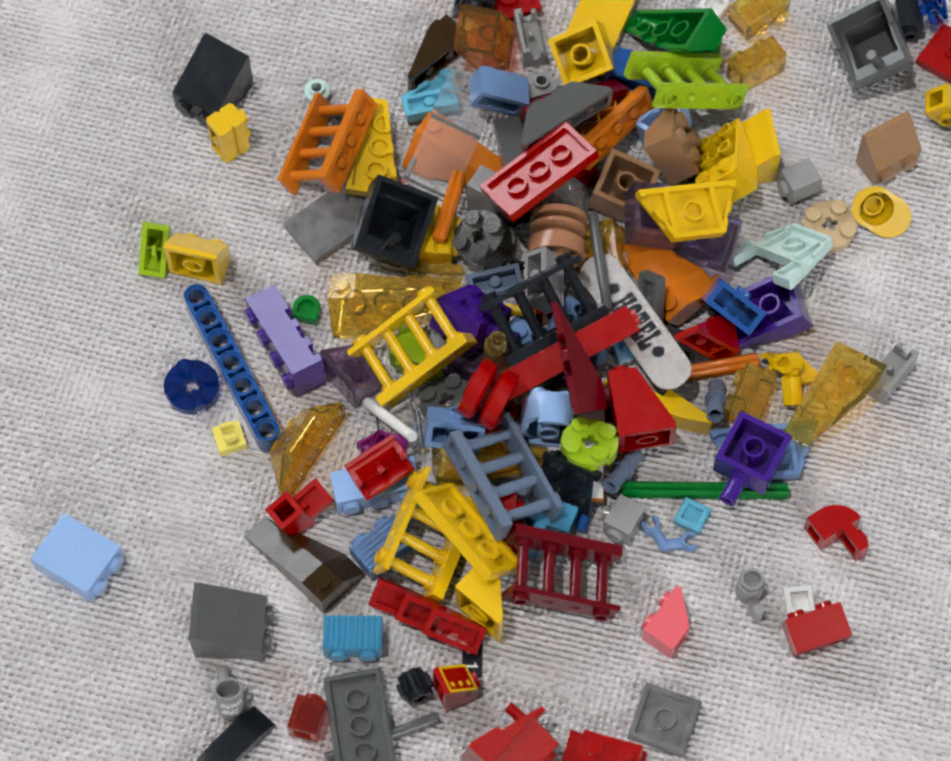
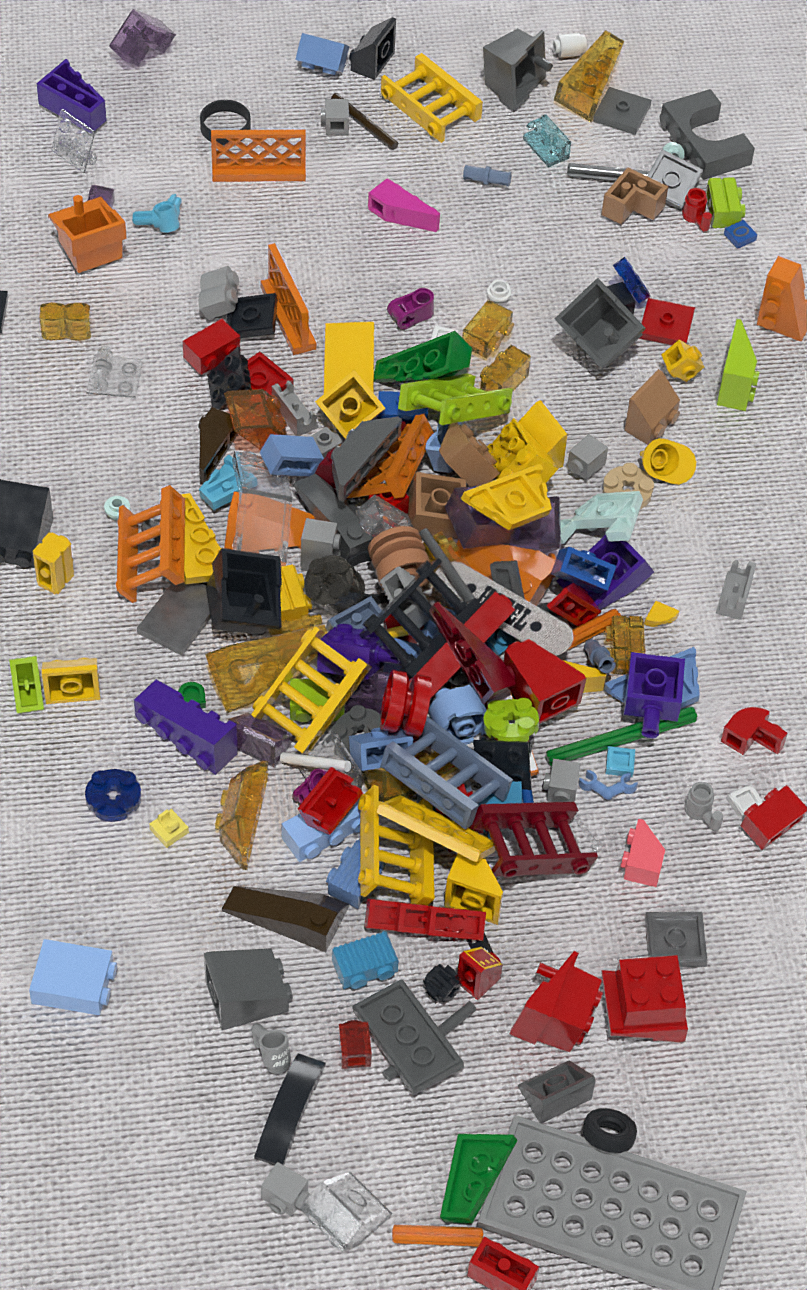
camera: 25 degrees left, 10 degrees down
(228, 356) = (150, 775): blue beam -> none
(298, 512) = (265, 867): red brick -> none
(449, 206) = (289, 564): orange axle -> none
(497, 344) = (389, 662): clear yellow pin -> none
(539, 171) = (365, 505): plate -> none
(622, 471) = (544, 741): sand blue pin -> none
(790, 365) = (650, 606): yellow bar -> none
(837, 388) = (700, 615): clear yellow wedge -> none

